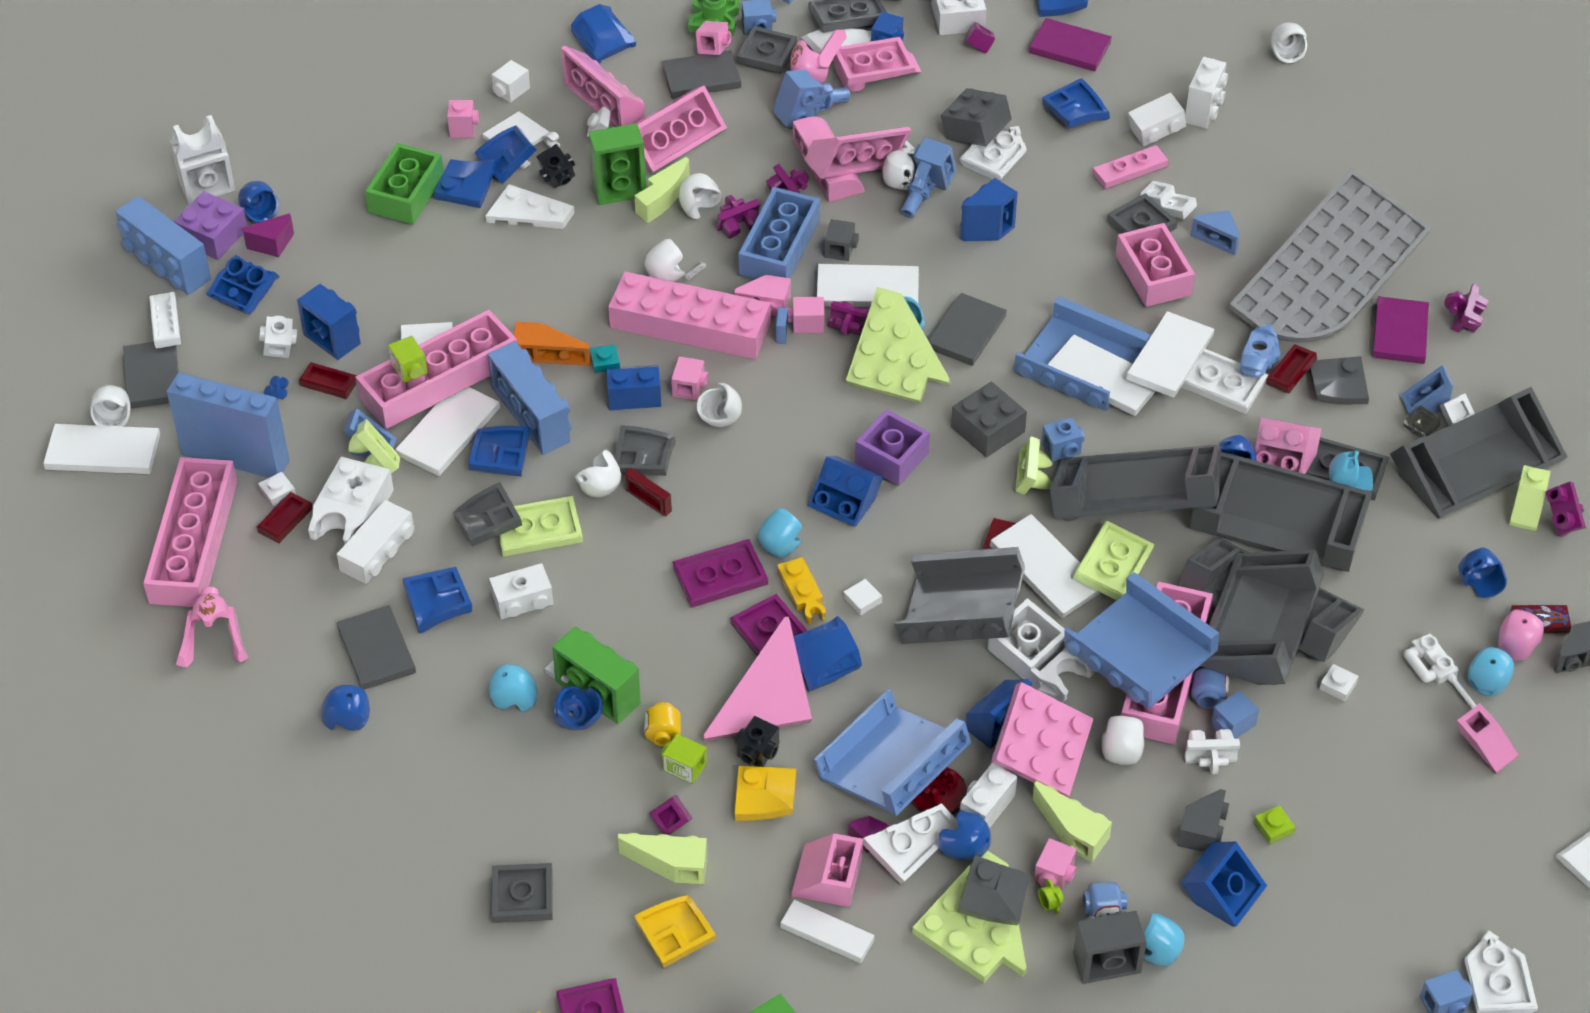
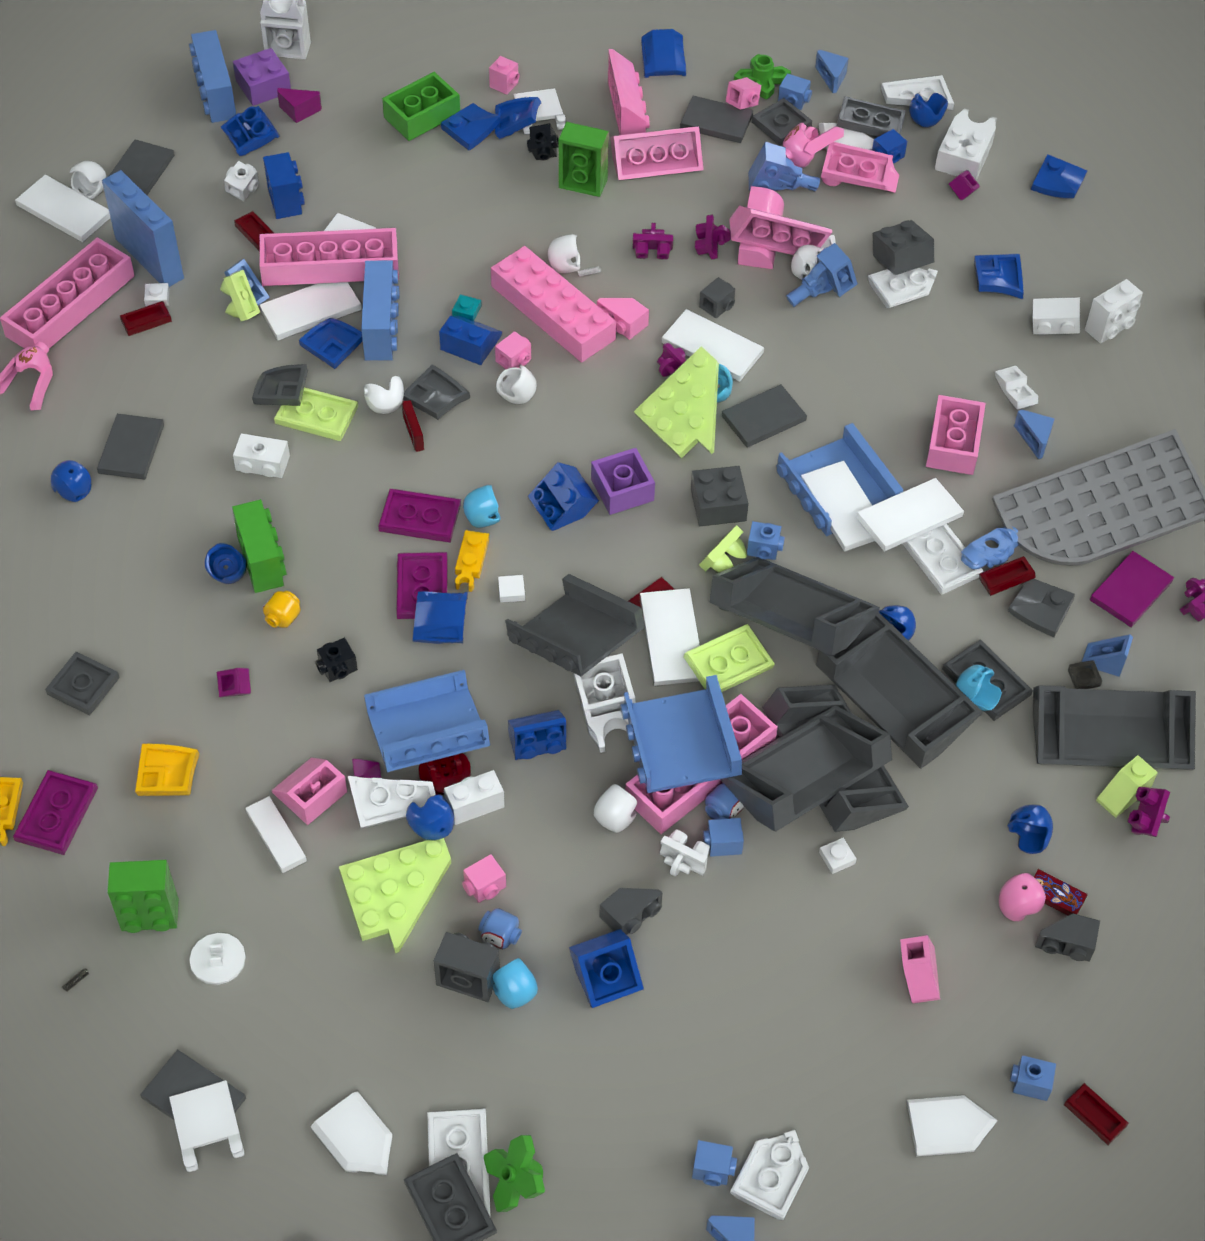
camera: 30 degrees right, 5 degrees up
(165, 320) = (176, 133): white plate -> none
(258, 201) = (306, 78): blue helmet -> none
(277, 387) = (212, 221): blue plant -> none
(350, 497) = (194, 328): white brick -> none
(375, 542) = (189, 367): white brick -> none
(407, 359) = (301, 237): lime brick -> none
(436, 597) = (199, 429): blue plate -> none
(510, 81) = (563, 62): white brick -> none
(513, 686) = (196, 525): medium azure helmet -> none
(526, 206) = (503, 166): white wing -> none
(551, 345) = (426, 275): orange slope -> none
(599, 120) = (604, 121): white plate -> none
(661, 191) = (612, 196): yellowish green slope -> none
(669, 856) = (211, 718): yellowish green slope -> none
(684, 758) = (275, 644): lime brick -> none
(698, 192) = (633, 210): white helmet -> none
(764, 793) = (315, 702): yellow plate -> none
(768, 690) = (377, 626): bright pink tile -> none
(779, 235) = (669, 272): medium blue brick -> none
(781, 325) = (617, 344): medium blue tile -> none
(807, 314) = (644, 345): bright pink brick -> none
(989, 212) = (849, 329): blue slope -> none
(994, 892) = (416, 873): dark grey plate -> none
(1042, 739) = (546, 773): bright pink plate -> none
(1050, 897) = (461, 902): lime plate -> none
(1070, 44) = (1036, 223): magenta tile -> none
(1072, 821) = (527, 860): yellowish green slope -> none
(1130, 167) = (1006, 346): bright pink plate -> none
(1139, 214) = (980, 388): dark grey plate -> none
(1274, 824) = (689, 943): lime plate -> none
(1287, 444) = (945, 637): bright pink slope -> none
(1441, 665) = (936, 890): white piece -> none
(1457, 409) = (1124, 679): white plate -> none
(1488, 677) = (972, 922): medium azure helmet -> none

